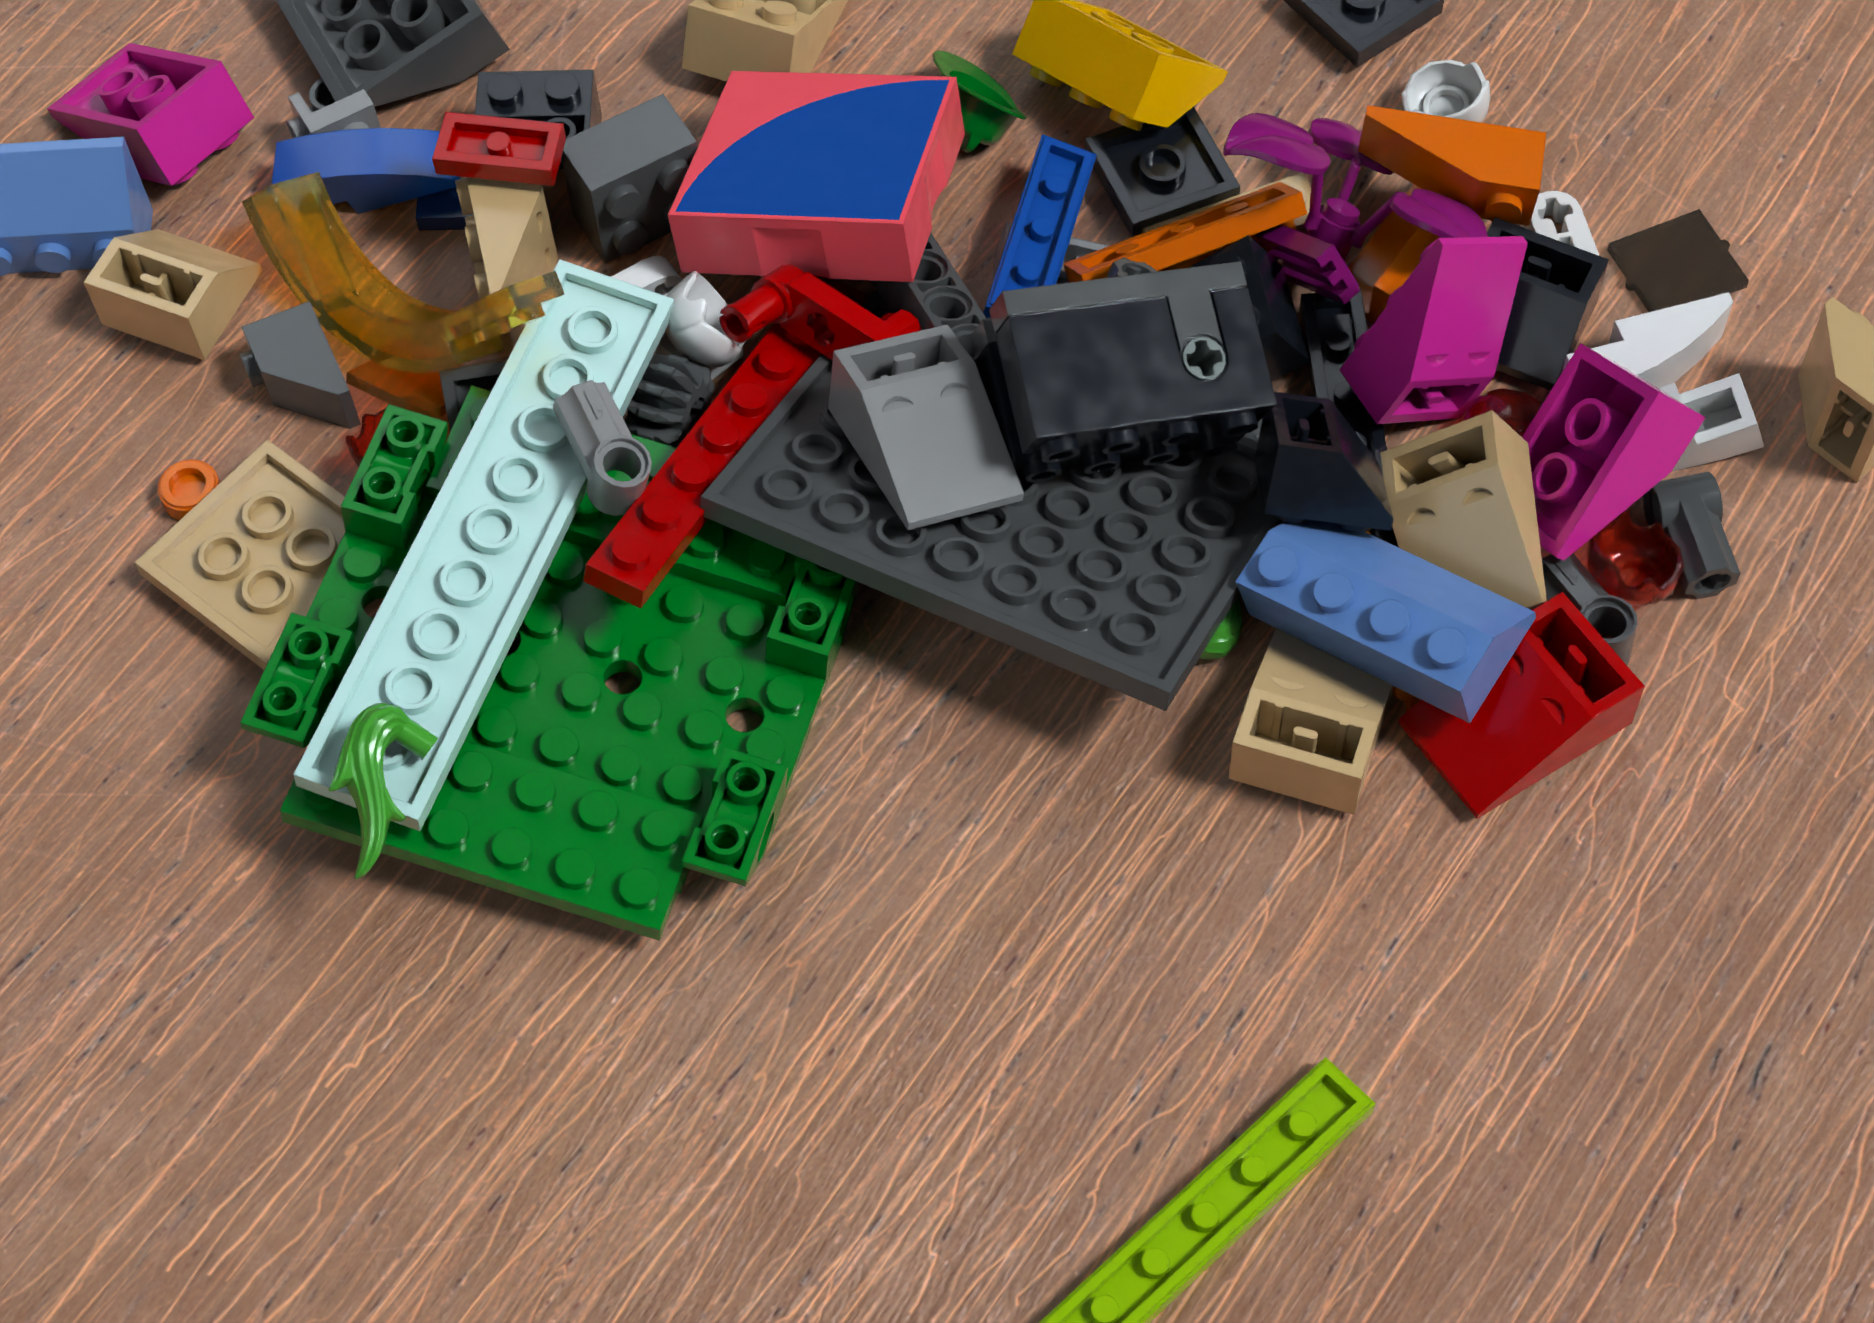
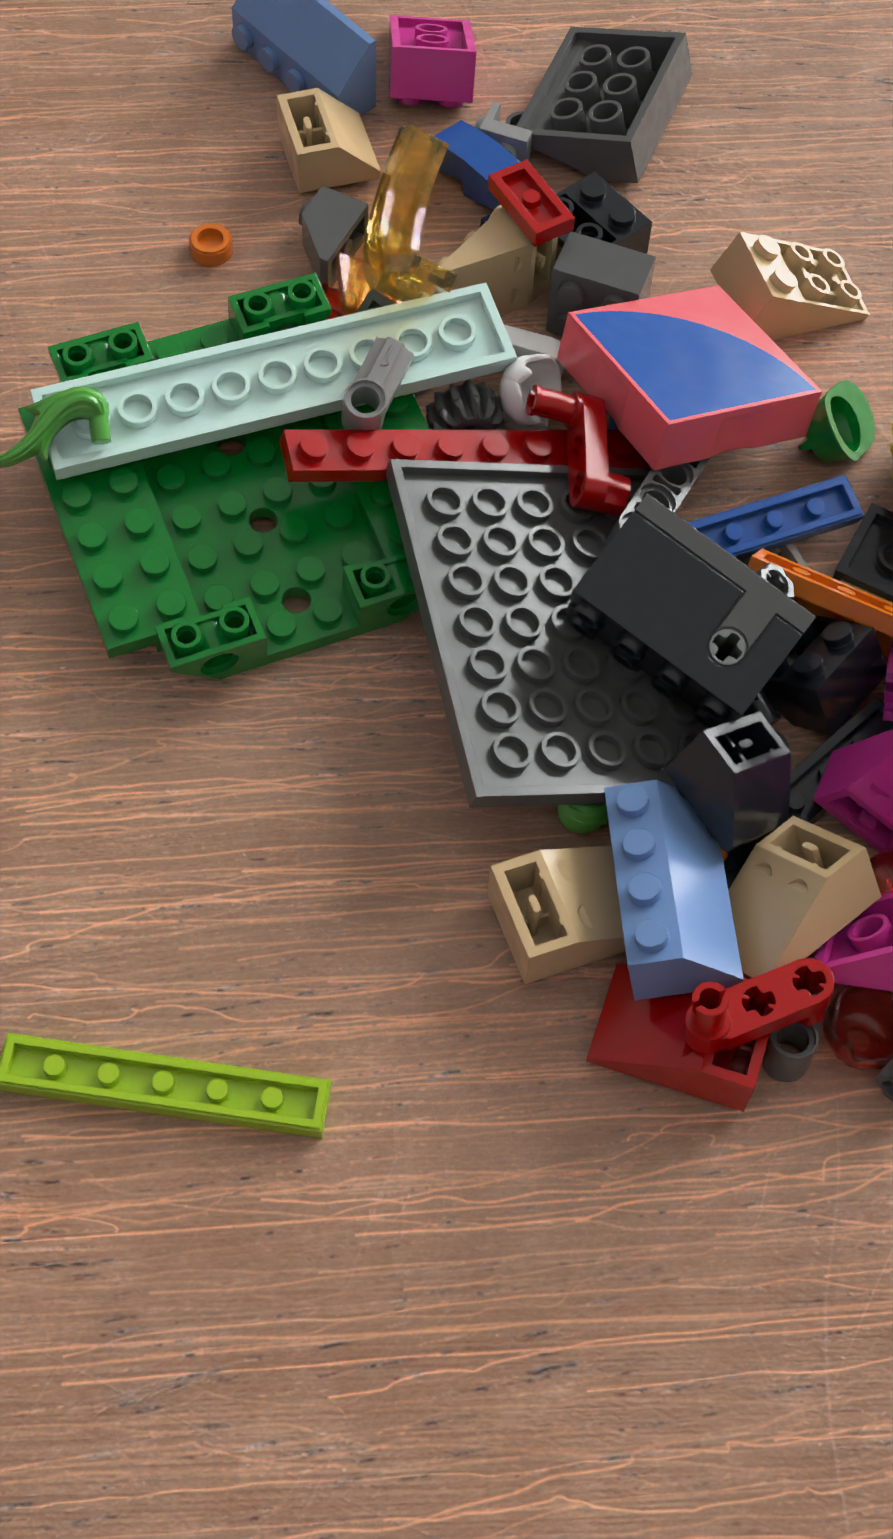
camera: 45 degrees right, 0 degrees up
(251, 551) = (190, 286): tan plate -> none
(923, 426) = (547, 540): light grey slope -> none
(1580, 592) = (720, 1017): none -> red beam

